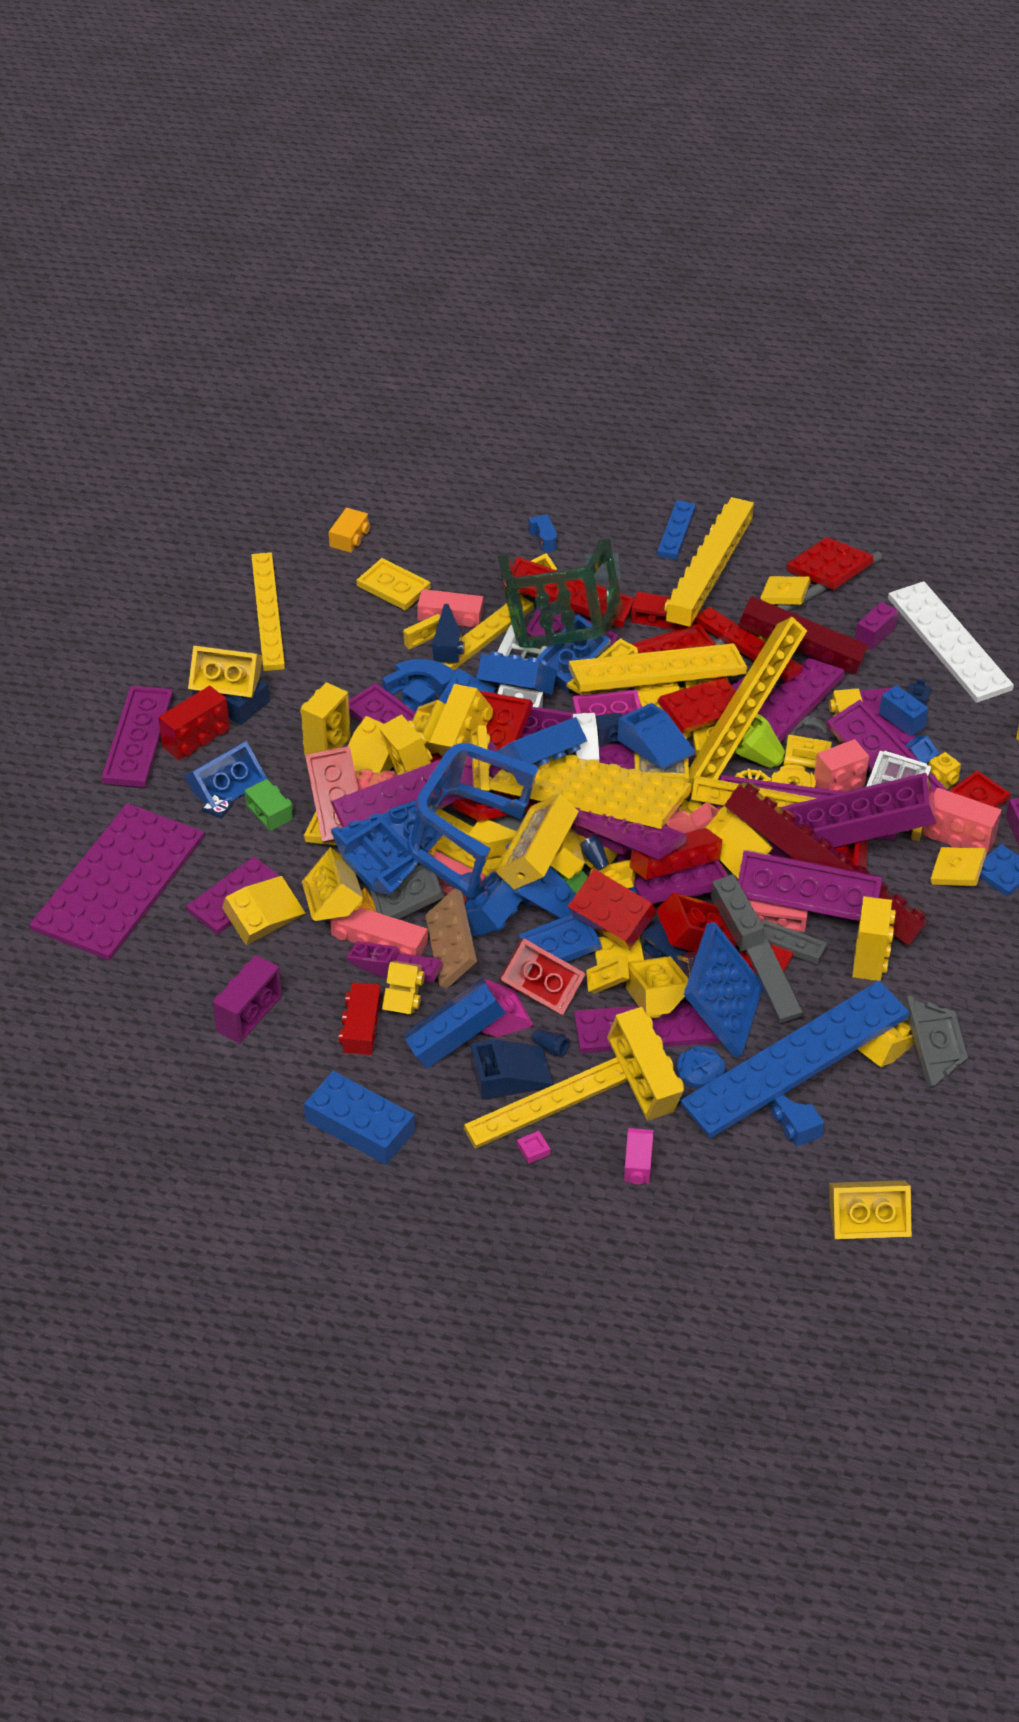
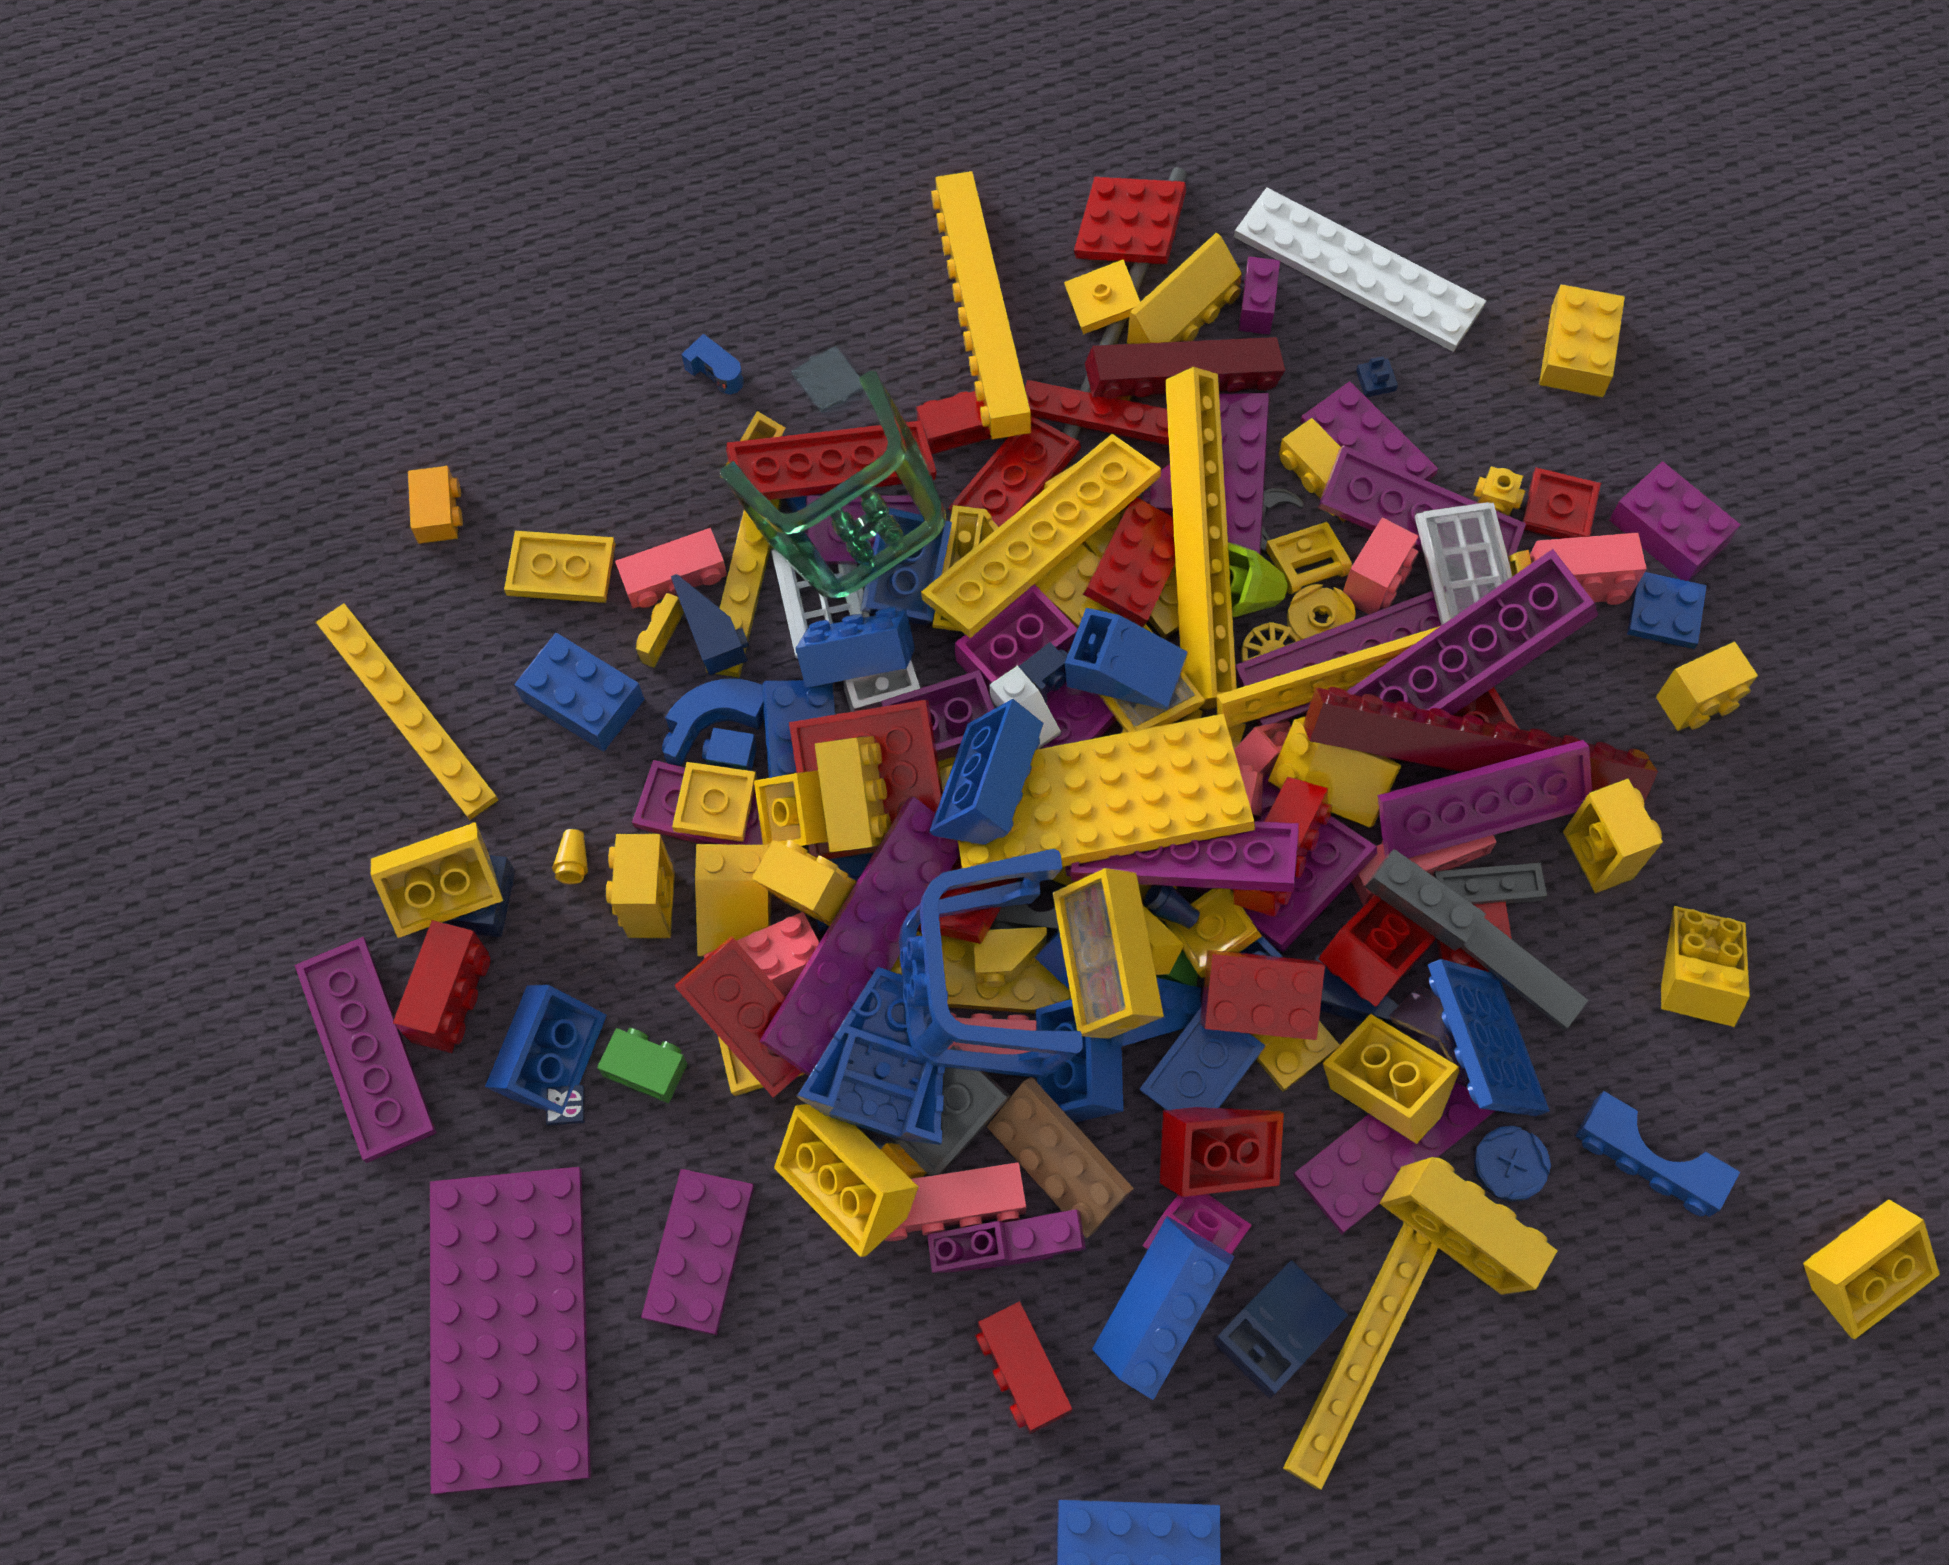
camera: 30 degrees left, 20 degrees up
(247, 999) = (849, 1443): magenta brick -> none
(262, 908) = (762, 1261): yellow slope -> none
(295, 706) = (571, 860): none -> yellow cone
(360, 638) = (579, 691): none -> blue brick
(390, 705) = (714, 801): none -> yellow plate
(403, 989) = (1054, 1287): yellow piece -> none
(480, 769) = (921, 840): yellow plate -> none
(533, 1147) = (1394, 1440): dark pink plate -> none
(552, 1042) = (1300, 1245): dark blue cone -> none
(607, 974) = (1309, 1093): yellow plate -> none
(638, 1156) = (1550, 1381): dark pink slope -> none
(676, 529) = (888, 264): blue plate -> none
(794, 1059) = (1645, 1097): blue plate -> none
(832, 604) = (1187, 297): none -> yellow slope
(903, 710) = (1396, 426): blue brick -> none
(922, 748) = (1455, 475): blue brick -> none
(936, 1039) = (1779, 946): dark grey wing -> none
(958, 866) = (1617, 640): yellow plate -> none
(991, 905) = (1707, 687): none -> yellow brick

